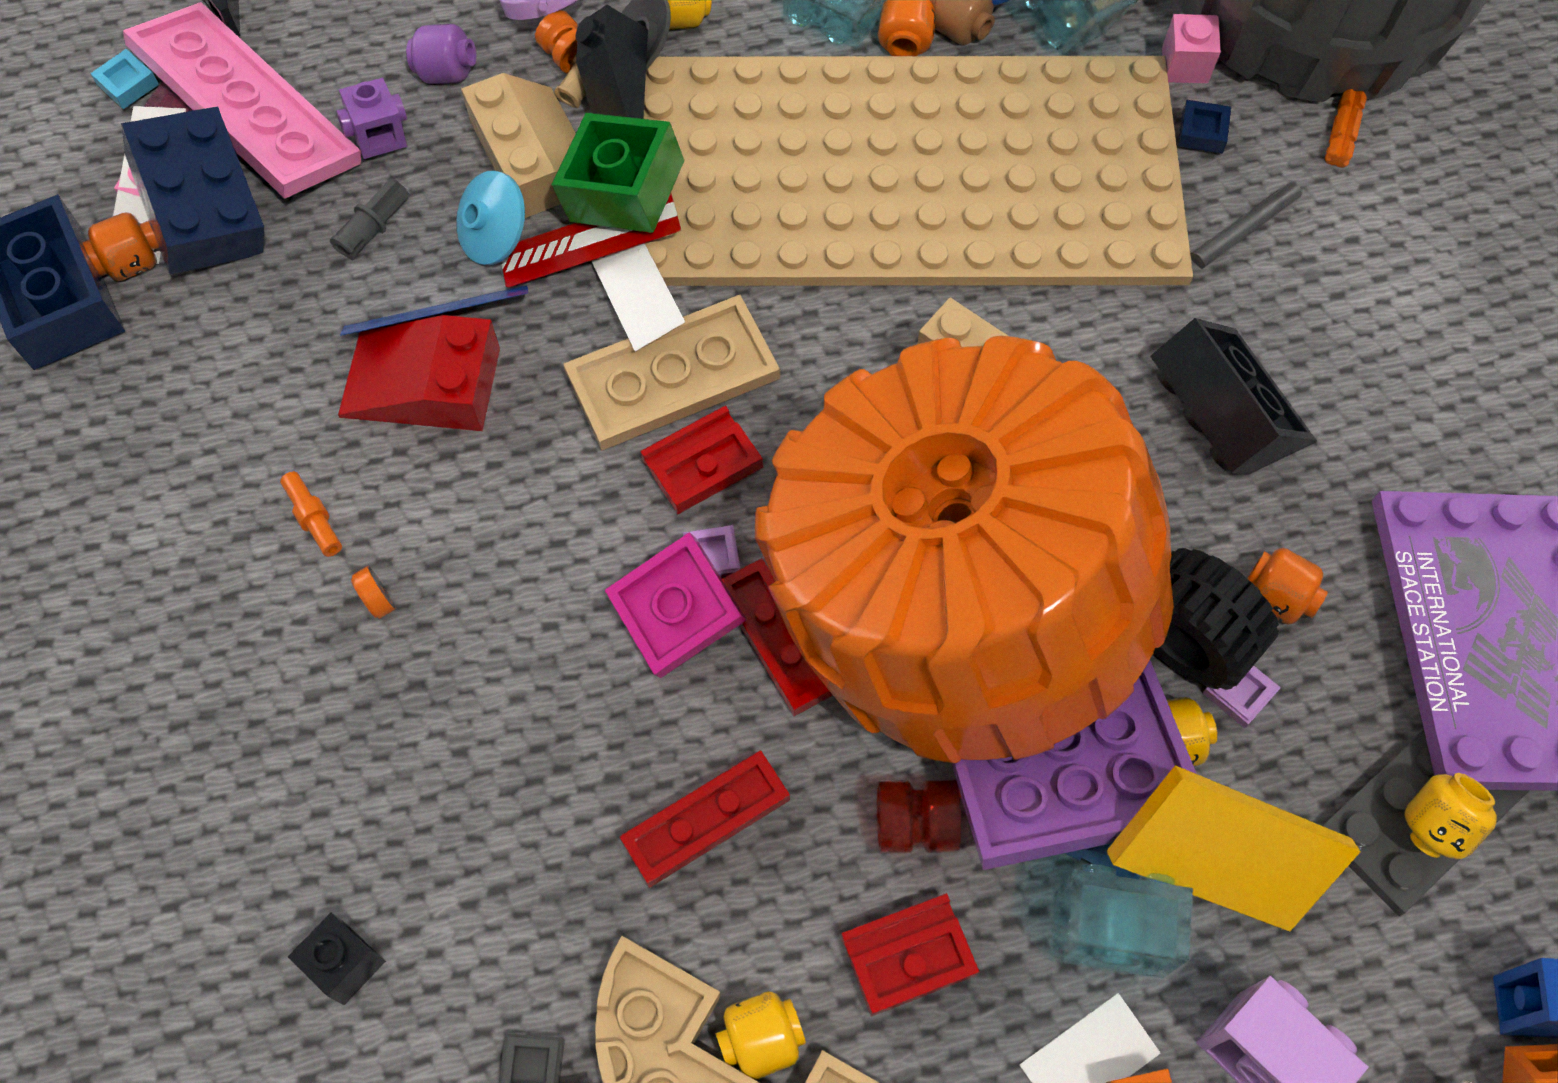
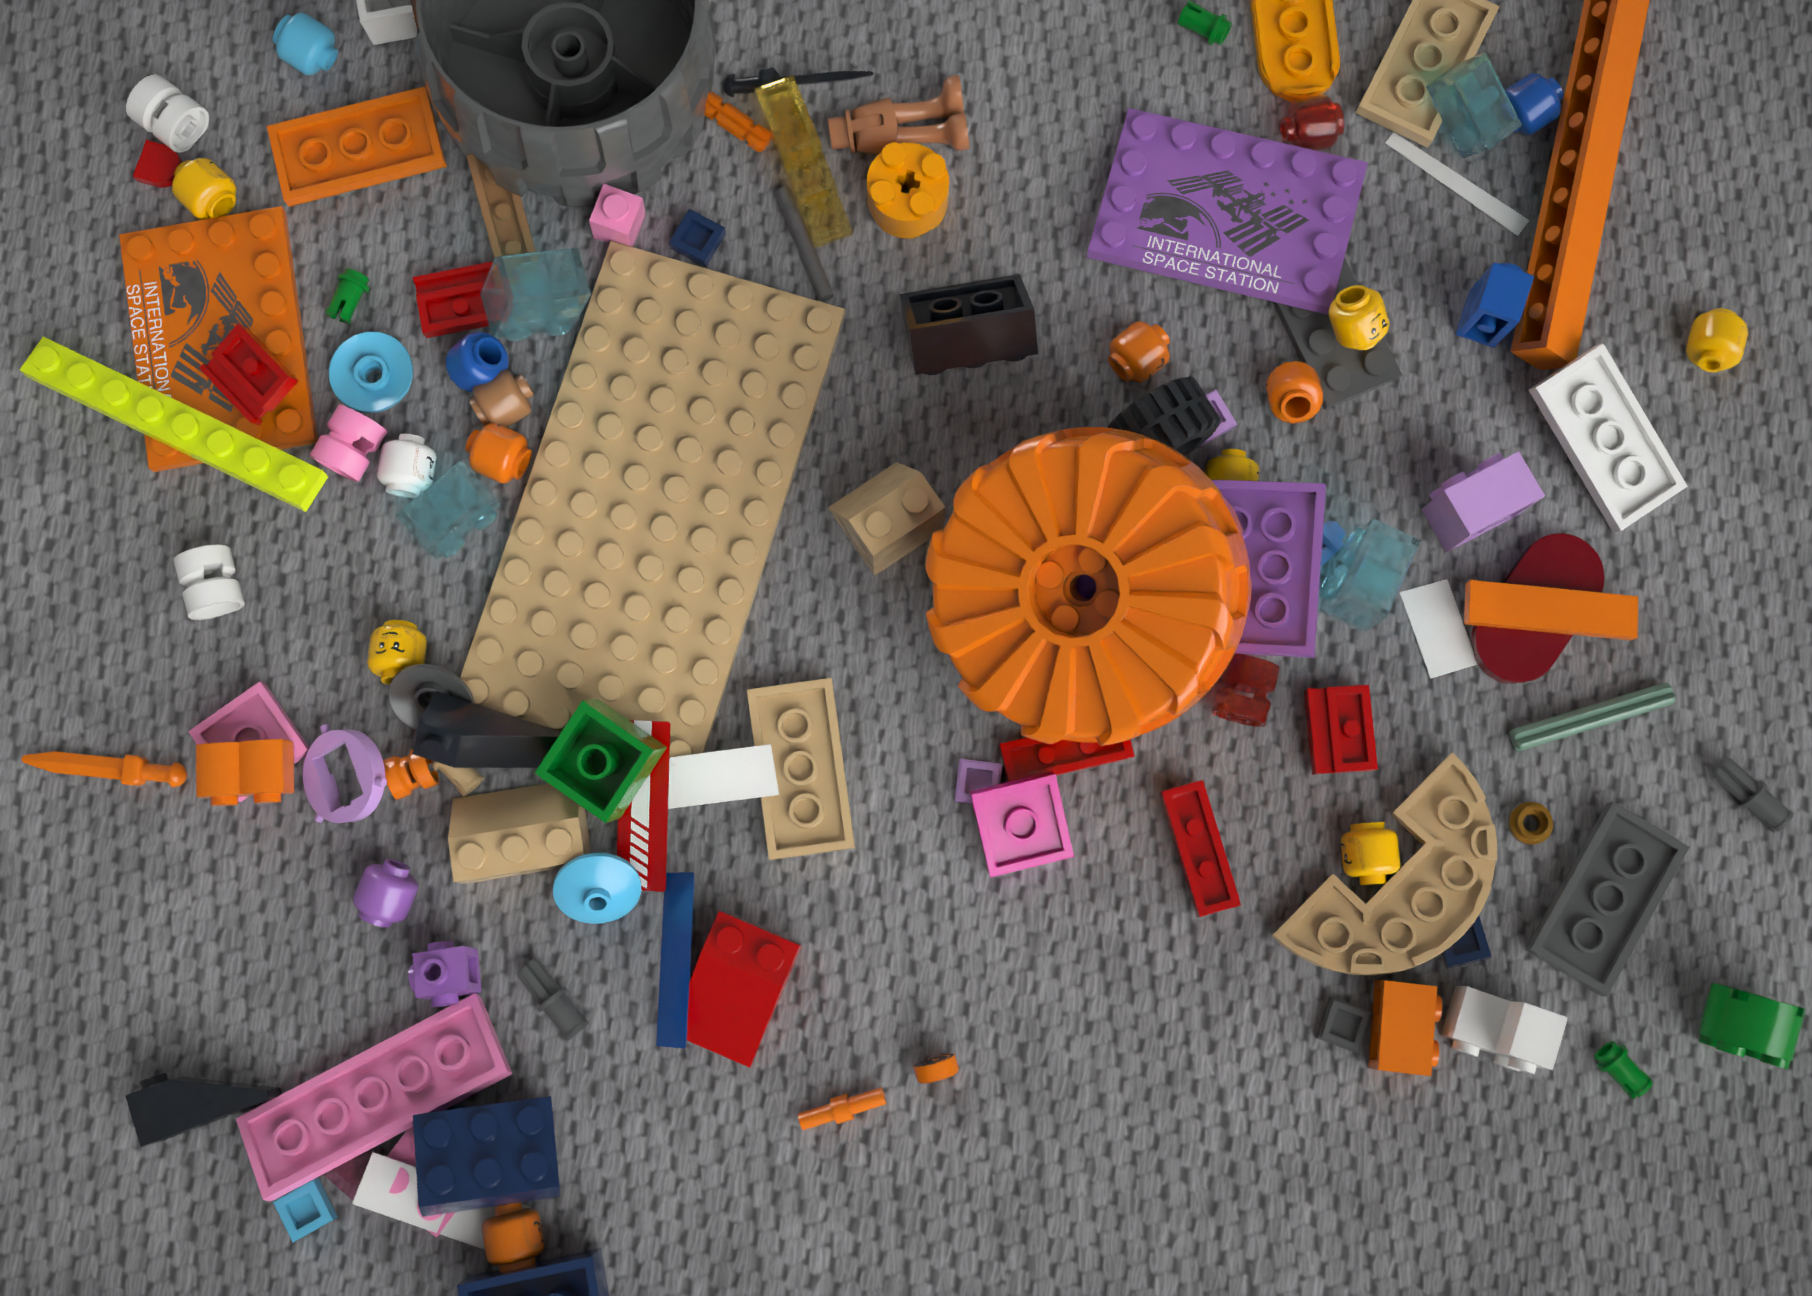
camera: 75 degrees left, 15 degrees up
(336, 959) = (1235, 1152): black brick -> none
(701, 459) = (892, 767): red plate -> none
(1233, 849) = (1347, 479): yellow tile -> none
(1318, 774) = (1294, 392): none -> orange head
(1335, 195) = (803, 161): none -> clear yellow slope
(1355, 293) = (904, 168): none -> light orange brick
(1406, 146) = (768, 75): none -> black sword
(1408, 253) = (878, 121): none -> nougat piece

